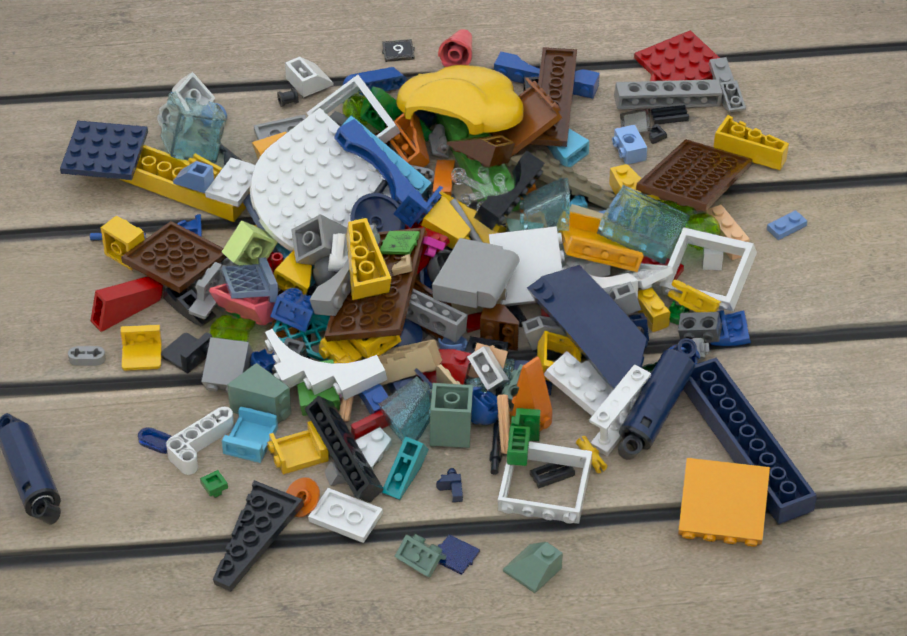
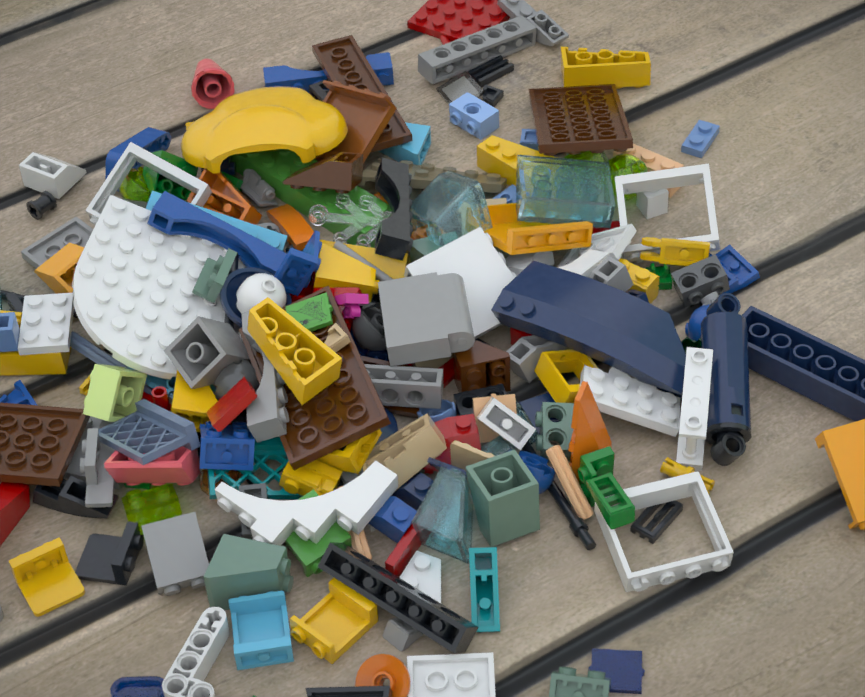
camera: 25 degrees left, 0 degrees up
(263, 359) = (214, 527): blue hair -> none
(310, 282) = (231, 404): none -> red tile
(339, 252) = (247, 360): white piece -> none
(358, 190) = (213, 276): none -> sand green bracket
(381, 215) = (258, 288): none -> white cylinder
(398, 50) = (137, 109): piece -> none
(451, 482) = (555, 581): dark blue piece -> none
(535, 565) = (721, 640): sand green slope -> none

